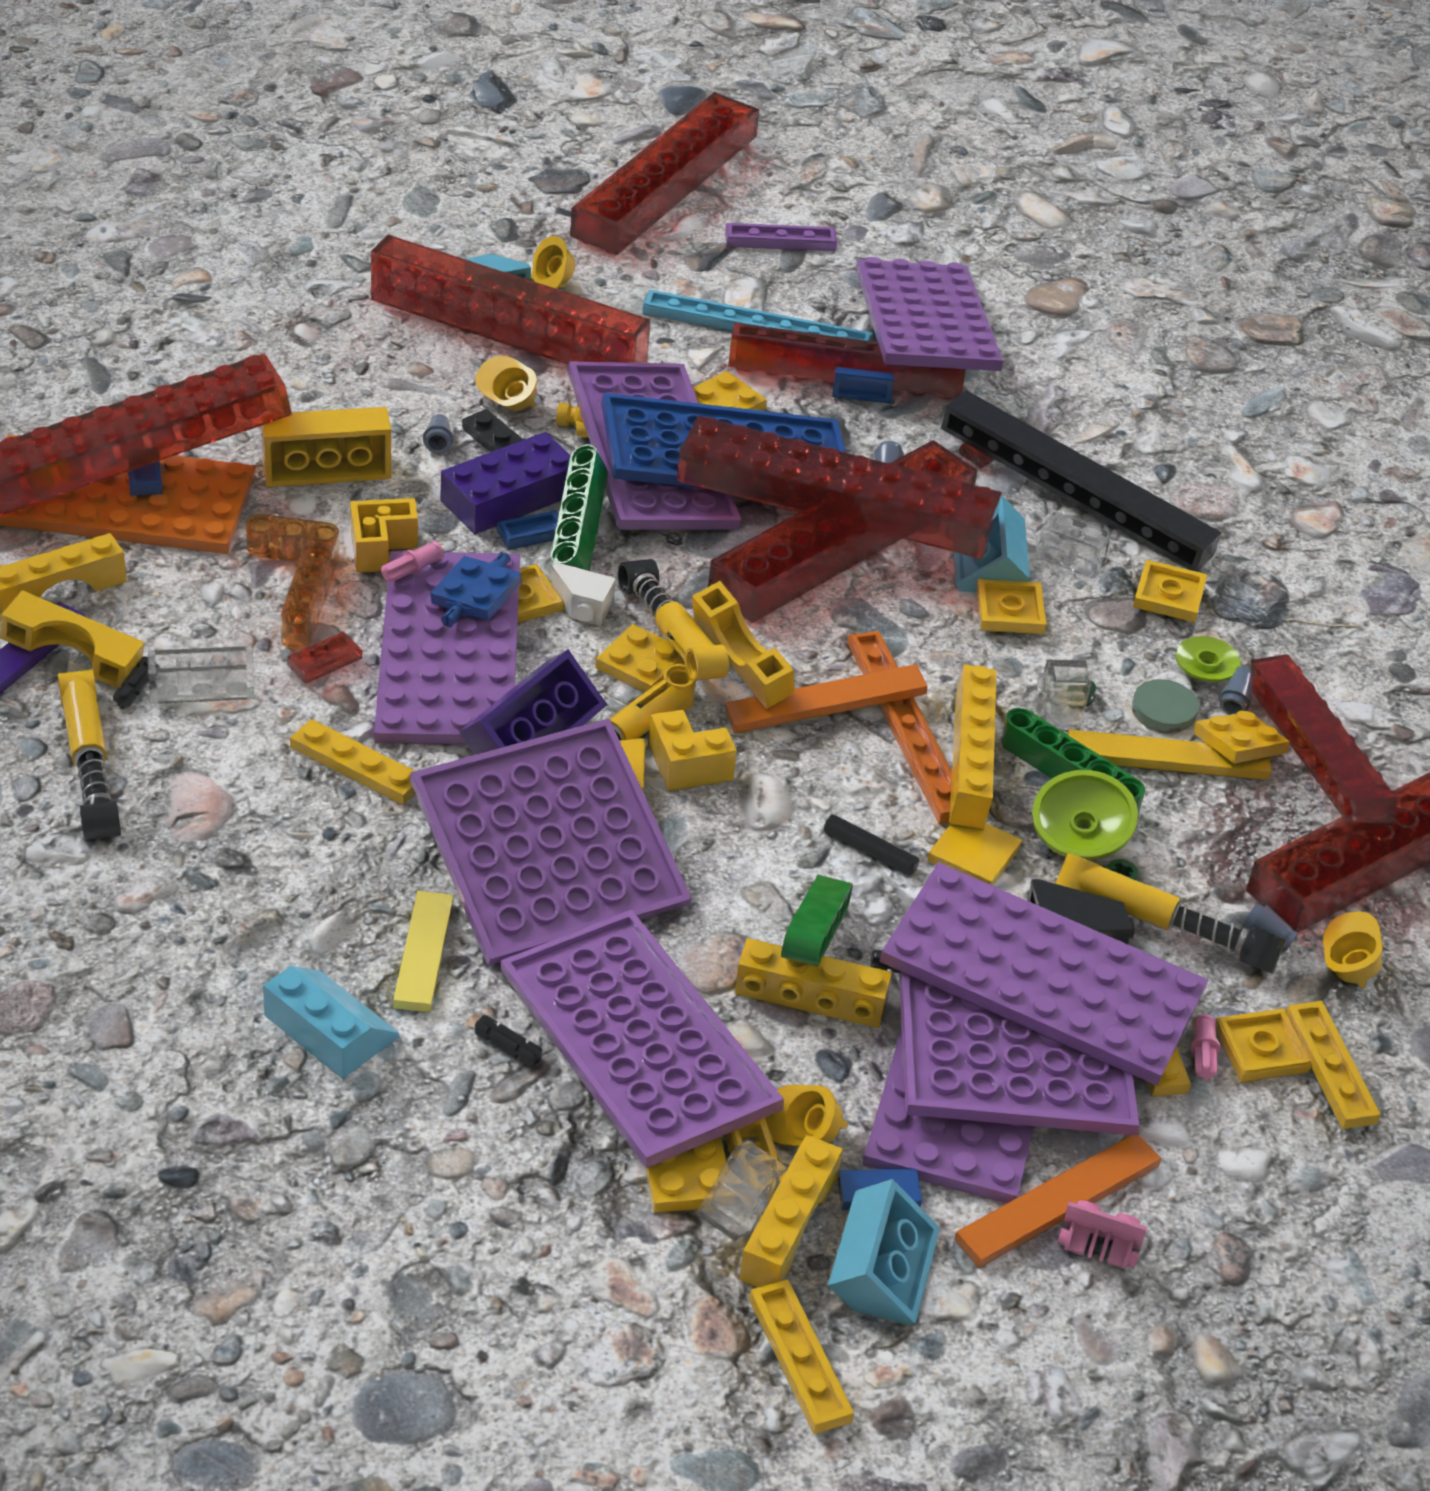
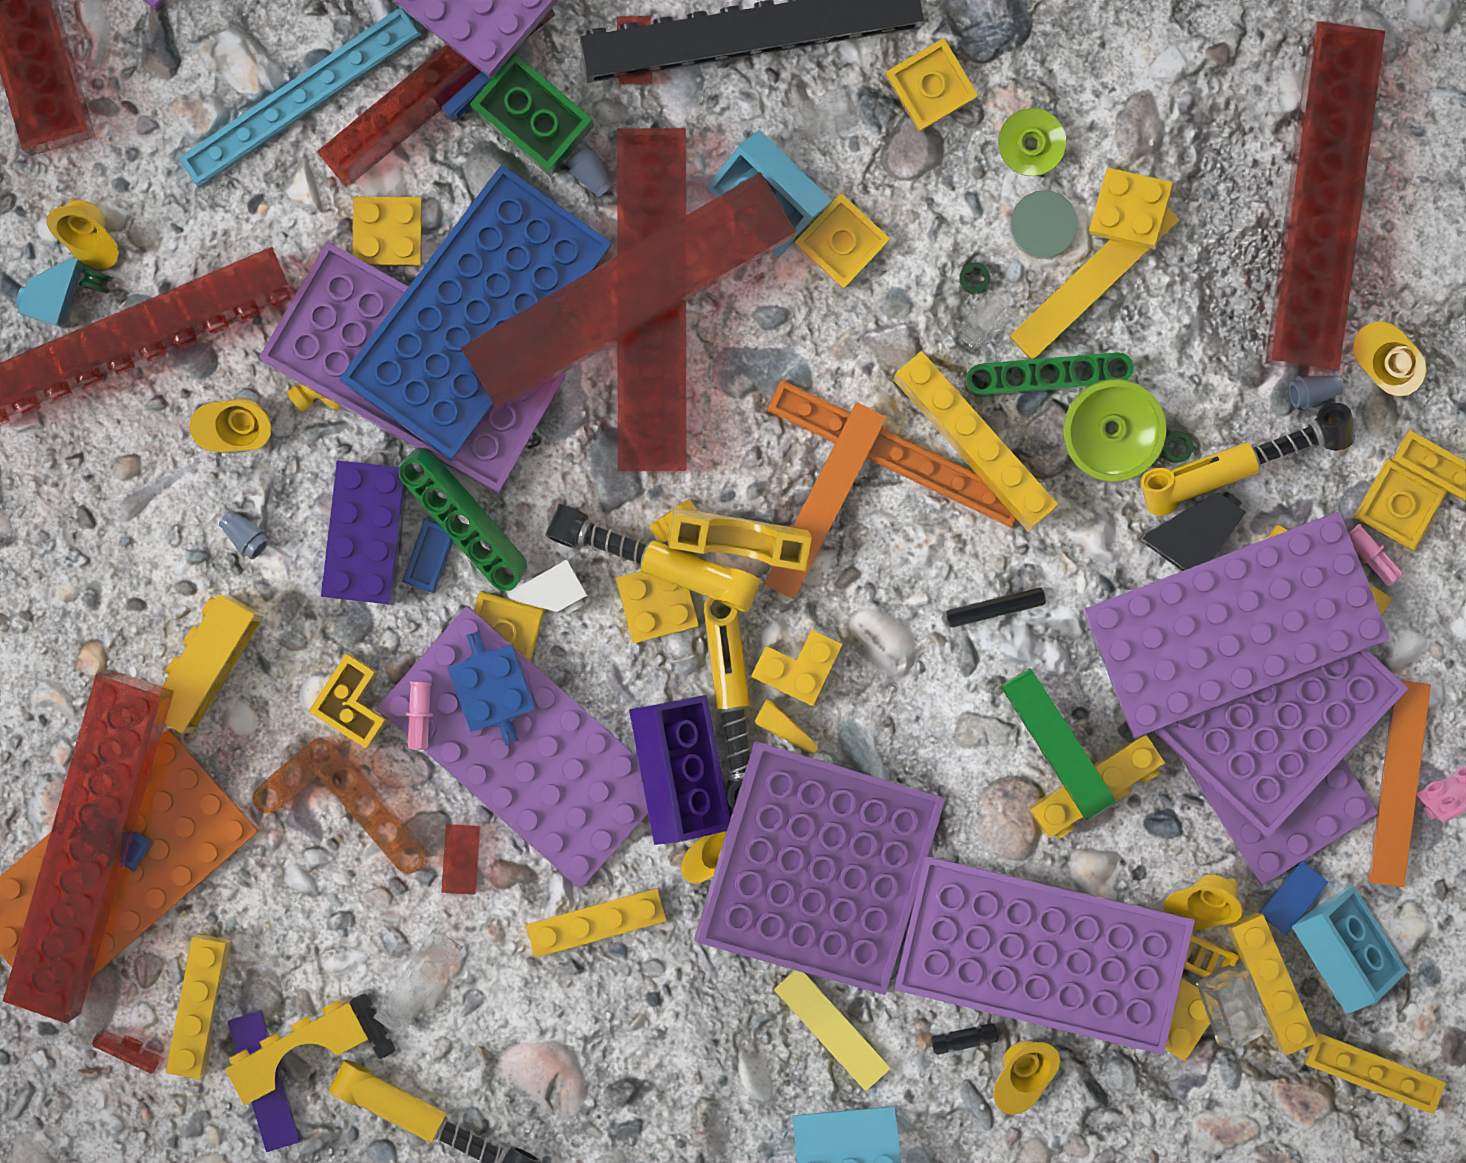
camera: 40 degrees left, 45 degrees up
(489, 430) = (282, 482): black hinge -> none
(521, 1084) = (1025, 1075): none -> yellow piece
(886, 409) = (532, 114): none -> green brick
(976, 851) = (1067, 535): yellow tile -> none
(1238, 691) = (1085, 157): sand blue cone -> none
(1323, 744) = (1203, 170): clear red brick -> none

